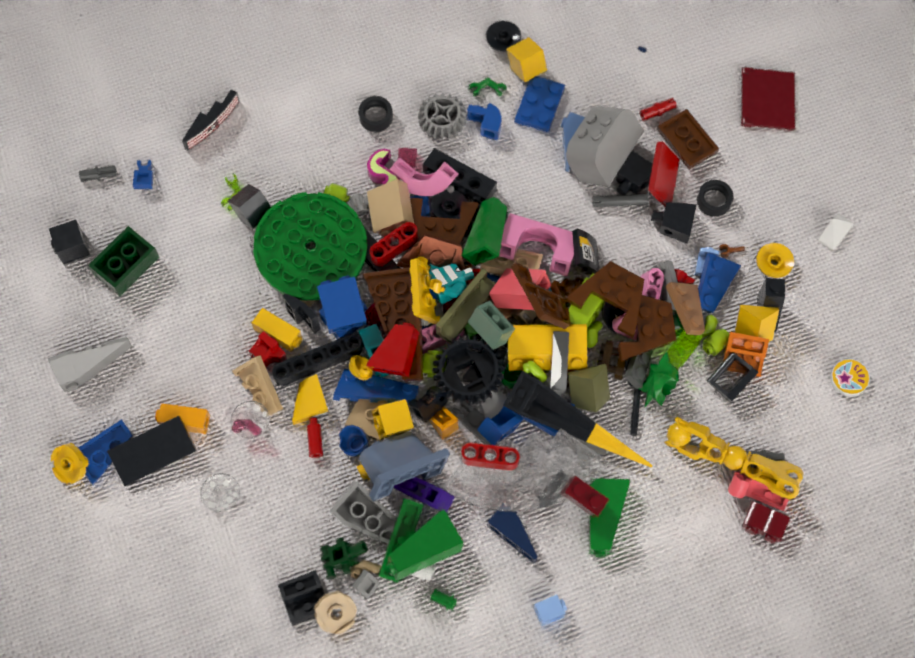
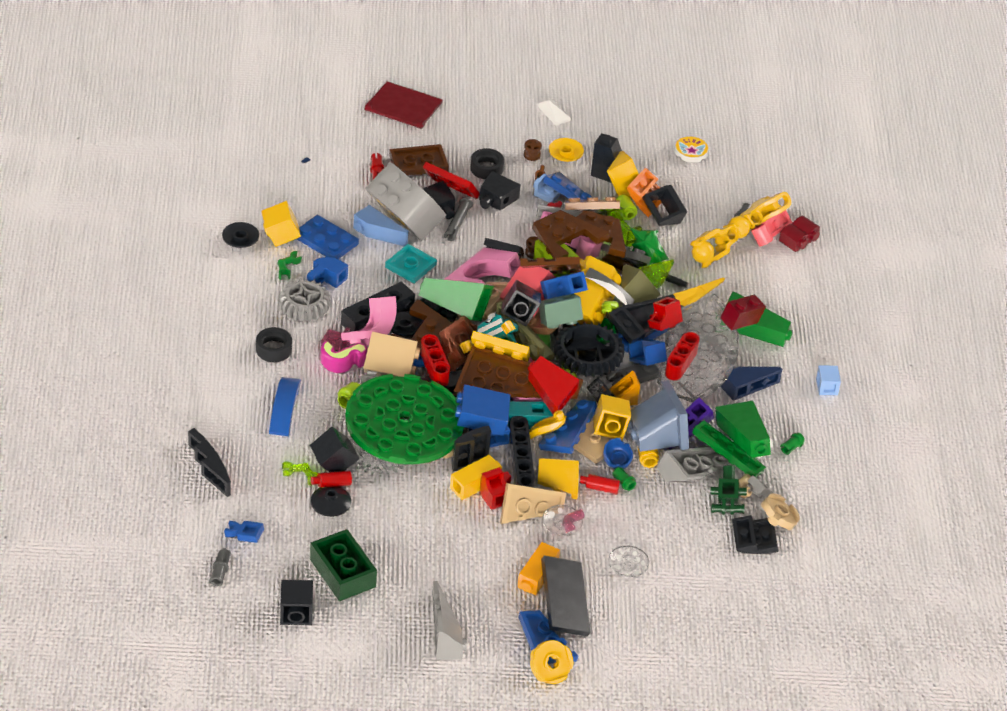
camera: 75 degrees left, 25 degrees down
(213, 233) = (331, 501): none -> black dish
(227, 218) = (332, 479): none -> red cylinder
(308, 147) = (283, 406): none -> blue slope
(329, 456) = (628, 482): none -> green pin
(478, 286) = (521, 303): none -> black head
(521, 316) = (564, 285): none -> blue brick
(536, 182) = (411, 263): none -> teal plate
(543, 423) = (666, 314): none -> red brick
(623, 398) = (657, 272): none -> clear neon green slope
(761, 226) = (532, 149): none -> reddish brown wheel

